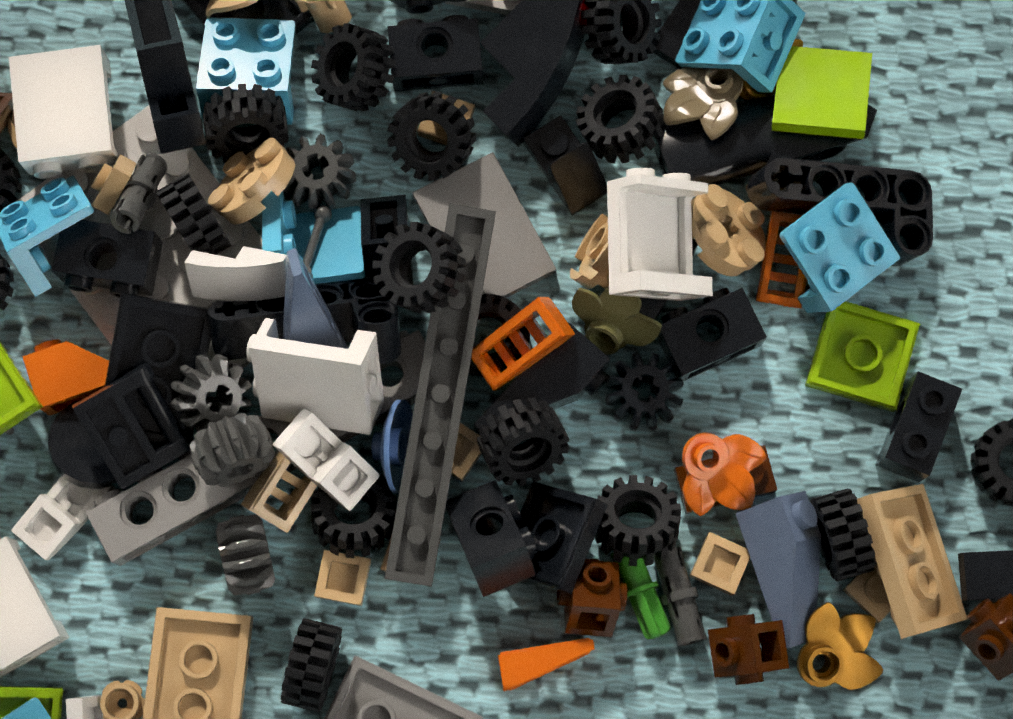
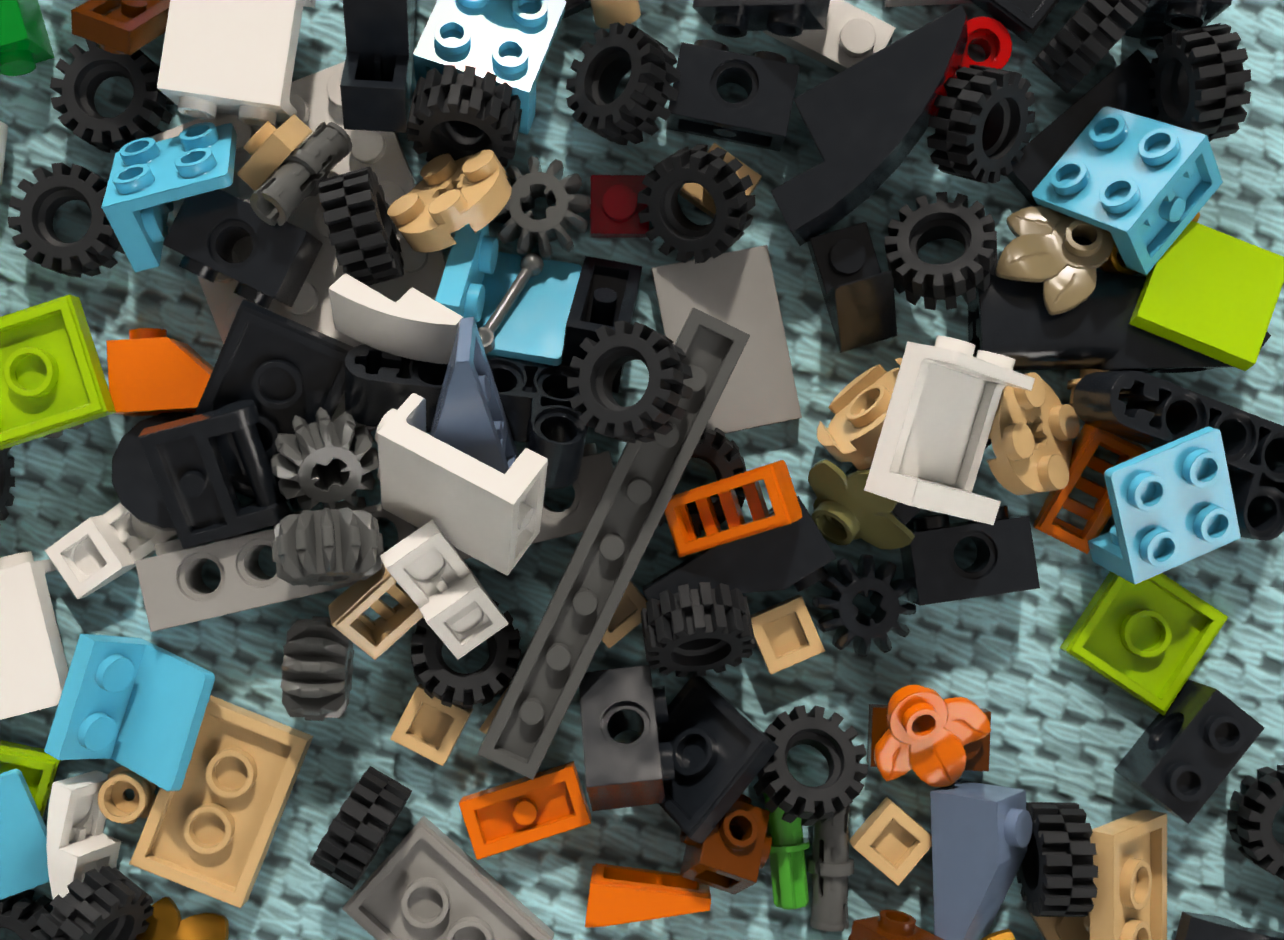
camera: 10 degrees right, 10 degrees up
(112, 627) = (131, 707): none -> medium azure bracket
(374, 156) = (616, 207): none -> dark red plate
(392, 443) = (535, 585): medium blue dish -> none
(433, 623) = (525, 810): none -> orange plate
(592, 431) = (785, 634): none -> tan plate

